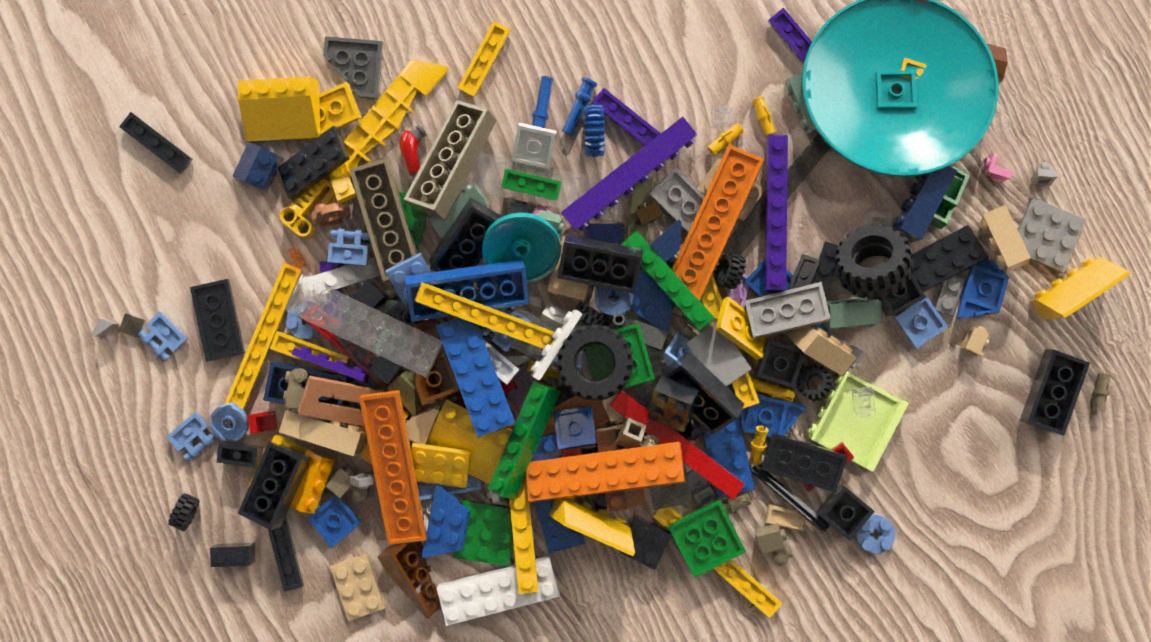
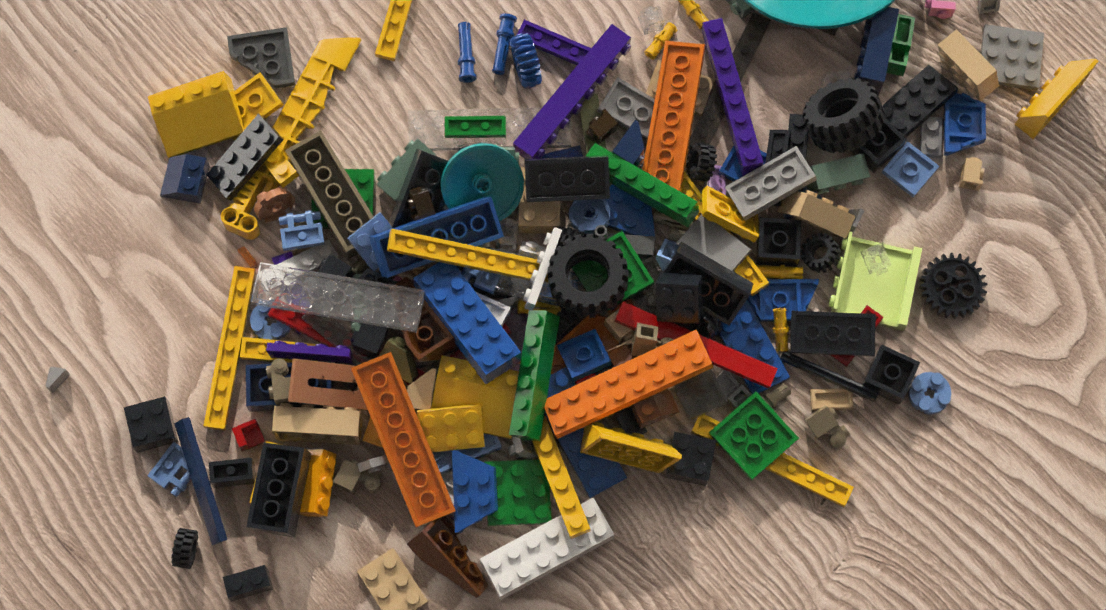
camera: 20 degrees left, 15 degrees down
(131, 325) = (84, 371): clear smoke tile -> none
(156, 142) = (72, 180): black plate -> none
(167, 332) = (124, 367): medium blue plate -> none
(178, 391) = (151, 424): none -> black brick
(210, 456) = (200, 481): none -> dark blue tile
(217, 320) = (176, 342): black plate -> none
(233, 413) = (225, 440): medium blue plate -> none
(286, 557) = (304, 570): black plate -> none
(334, 520) = (350, 520): blue plate -> none
(408, 146) = (339, 122): red piece -> none
(450, 159) = (386, 120): dark tan brick -> none
(459, 255) = (420, 203): none -> dark brown brick
(534, 145) = (467, 89): white plate -> none
(926, 459) = (959, 302): none -> black gear
(1054, 391) = (1066, 203): black brick -> none

